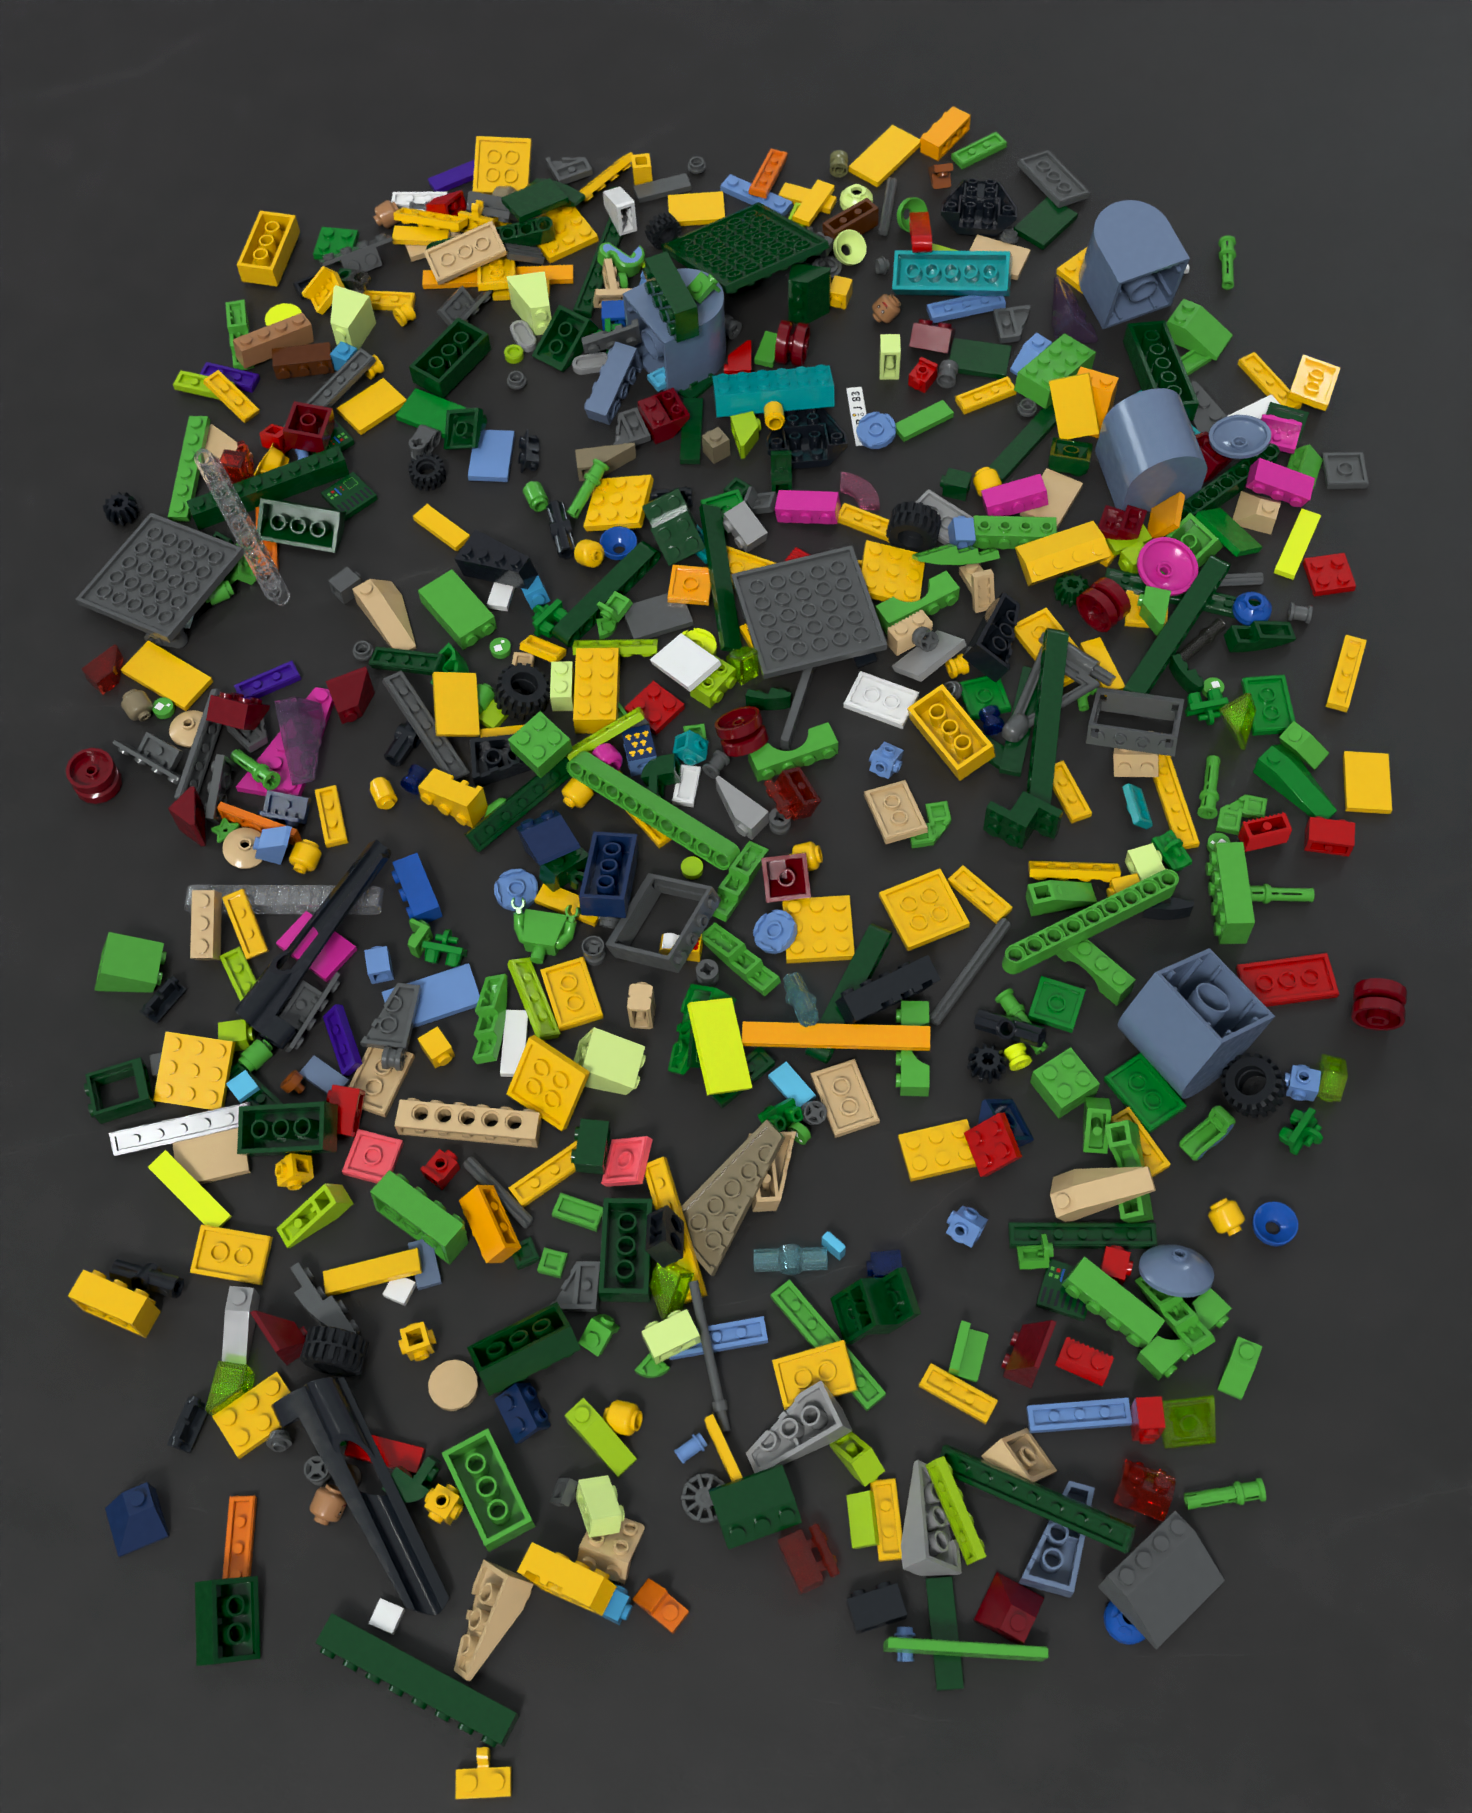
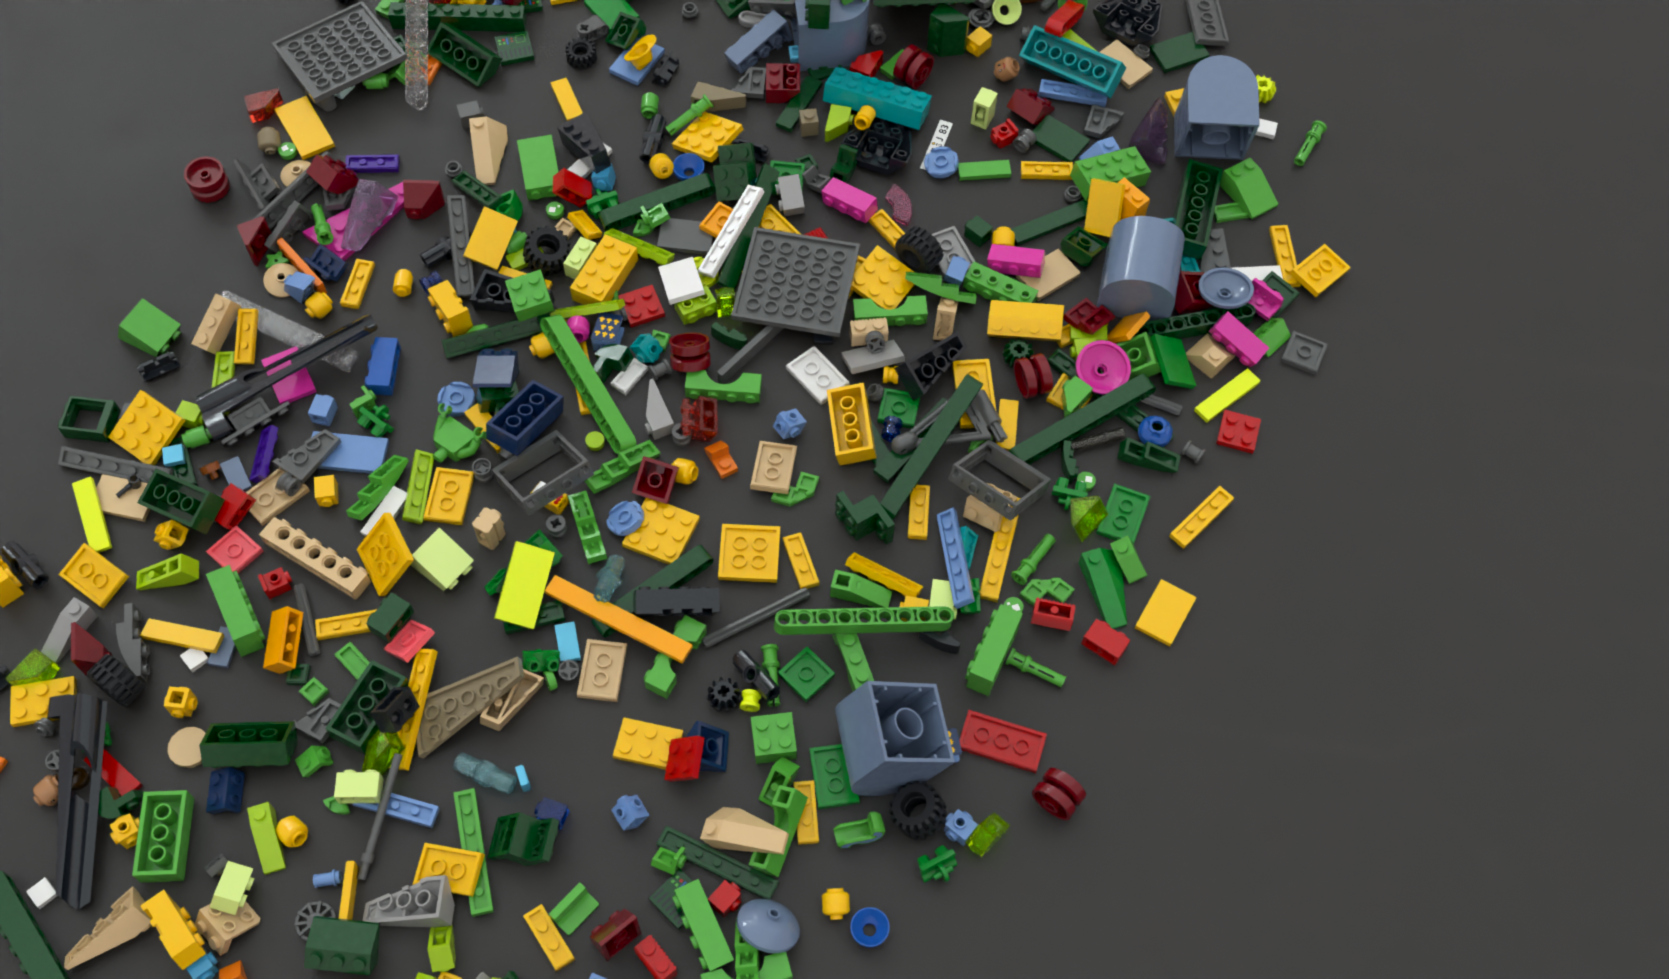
camera: 20 degrees right, 0 degrees up
(214, 1138) = (134, 483): none -> black hand
(496, 442) = (641, 52): none -> yellow piece
(509, 615) = (572, 187): none -> red brick
(707, 589) = (730, 231): none -> white tile
(834, 827) = (721, 459): none -> orange slope
(1138, 819) = (955, 558): none -> medium blue tile

